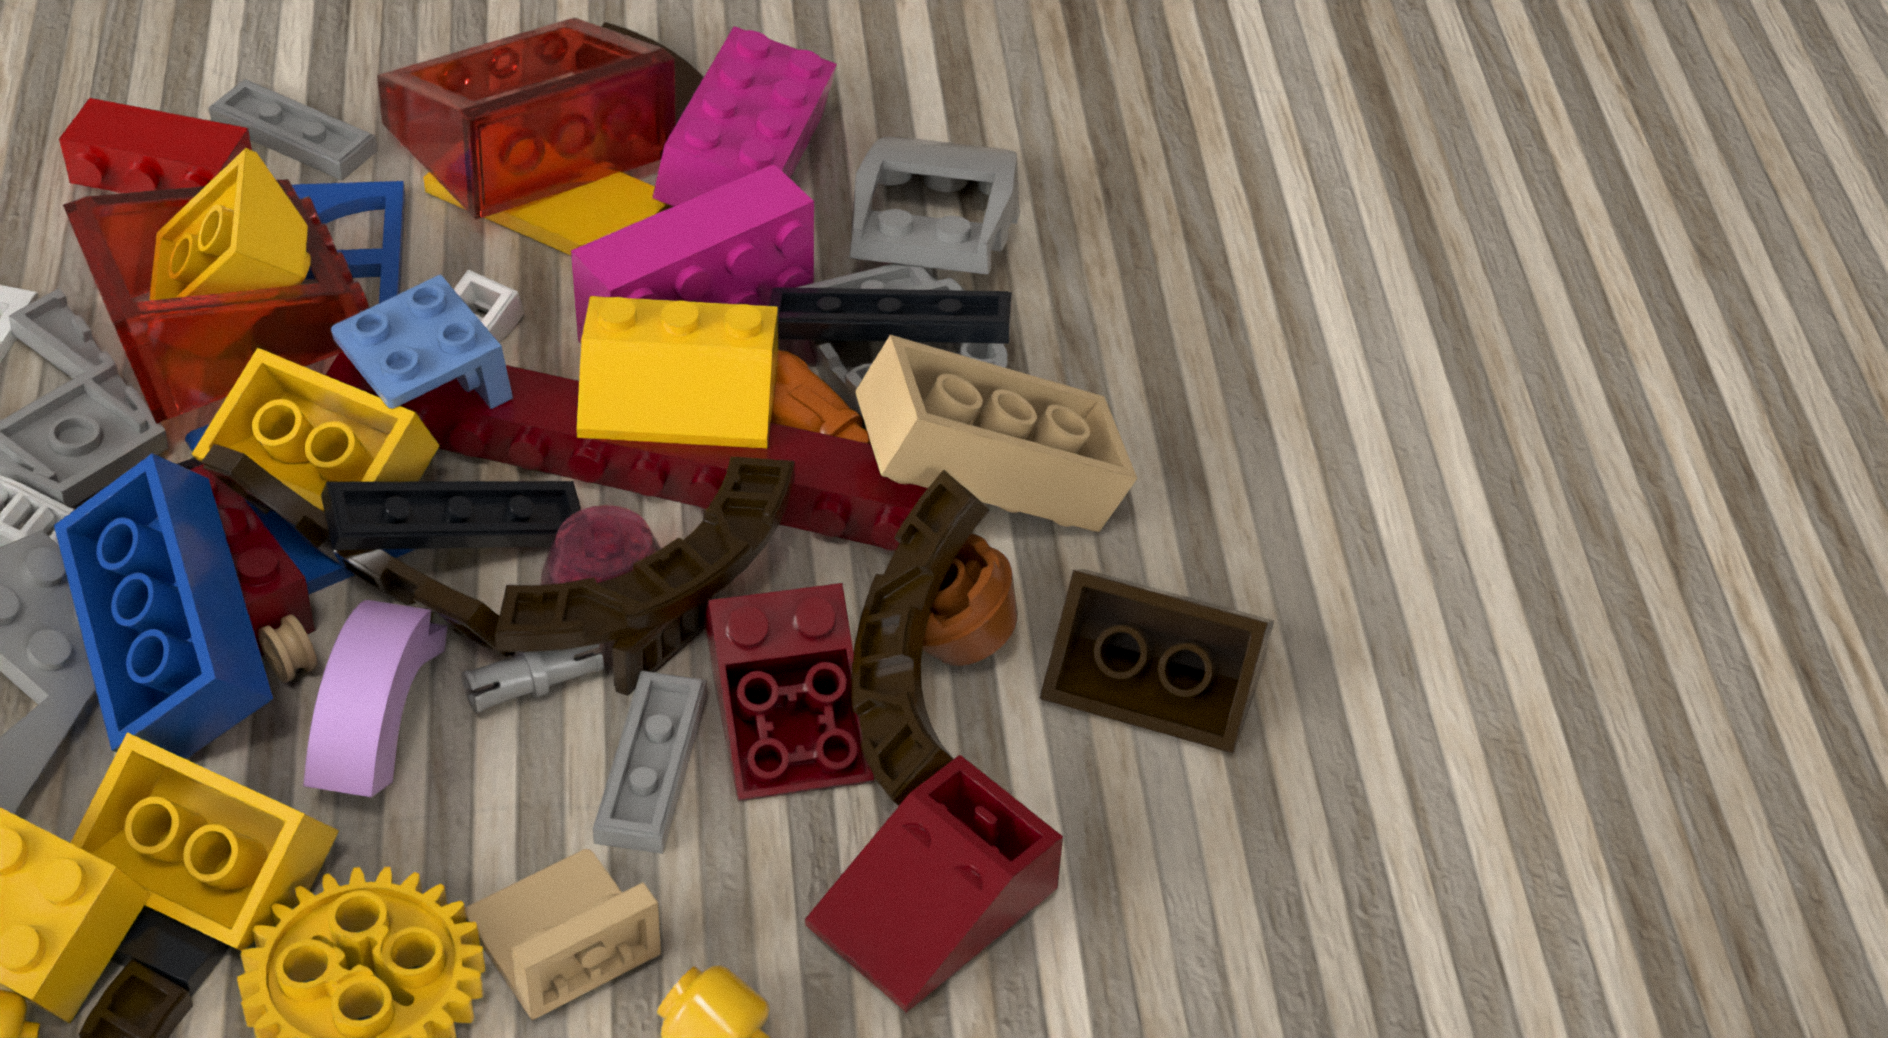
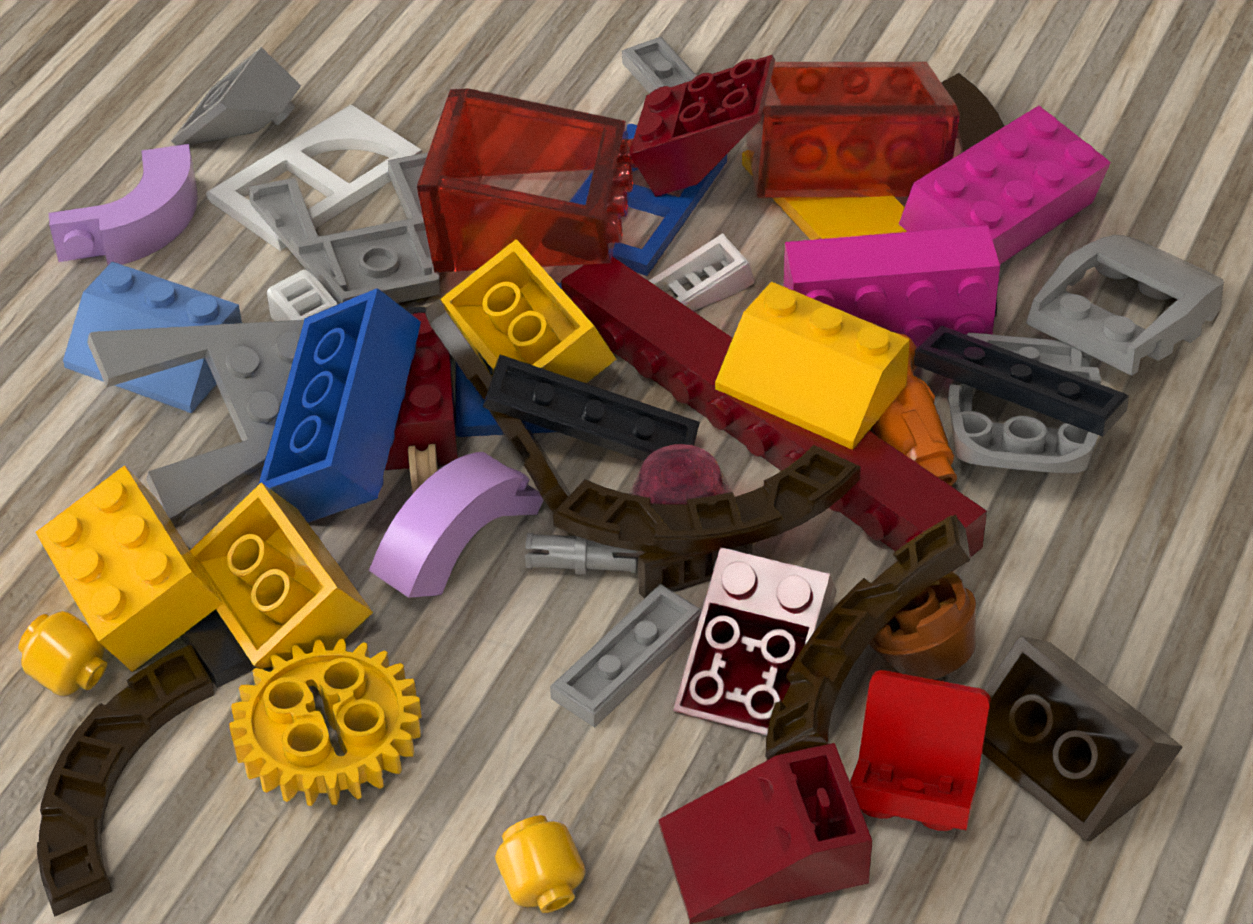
camera: 35 degrees right, 0 degrees up
(145, 148) = (560, 71): red brick -> none
(232, 237) = (548, 152): yellow slope -> none
(382, 153) = (698, 123): none -> dark red slope
(423, 343) = (630, 275): medium blue bracket -> none
(566, 931) = (479, 752): tan bracket -> none
(996, 433) = (1033, 505): tan brick -> none
(1037, 724) = (920, 750): none -> red bracket

